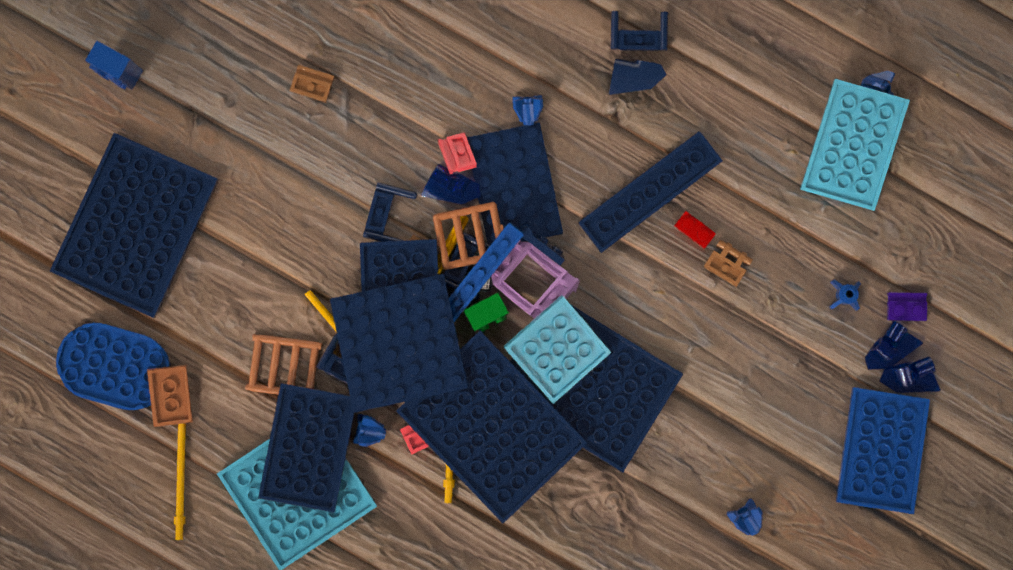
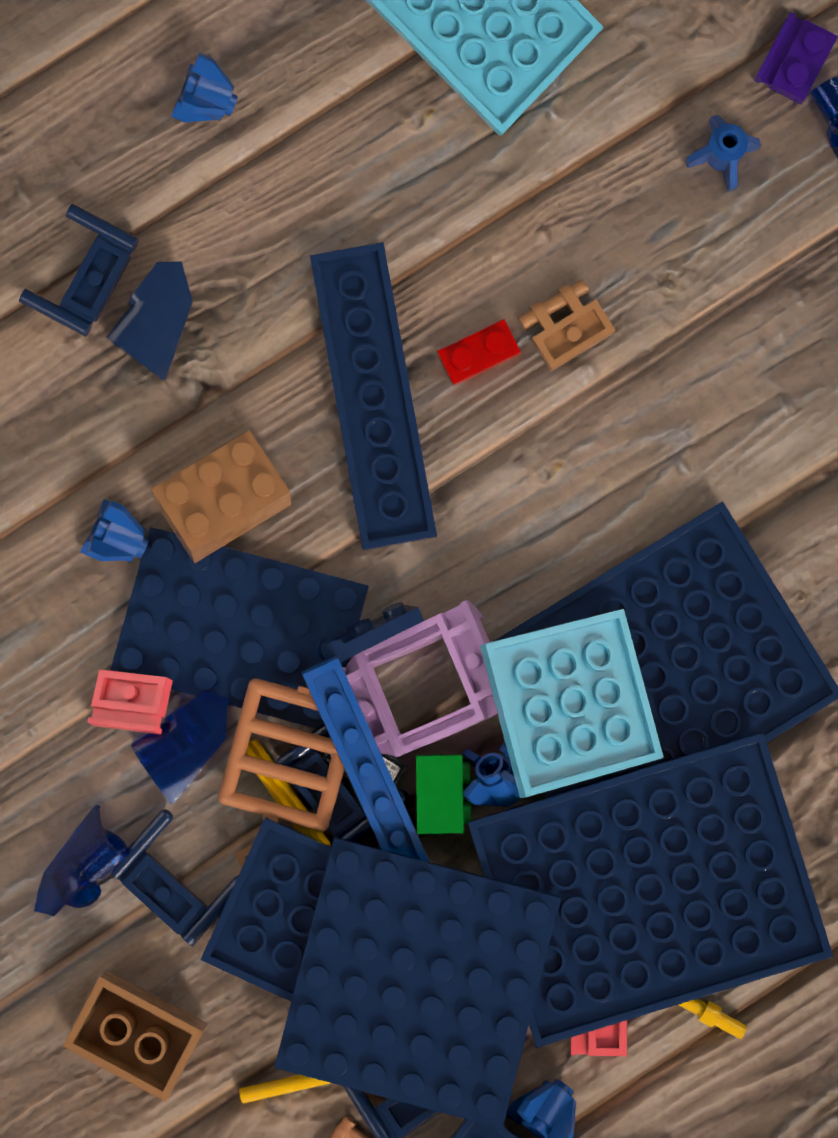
camera: 65 degrees left, 0 degrees up
(311, 231) = (135, 1035): none -> medium nougat brick
(373, 168) = (83, 860): none -> clear blue panel
(503, 333) = (494, 779): none -> blue brick
(569, 147) = (221, 496): none -> medium nougat brick
(749, 45) = (205, 93): none -> blue brick

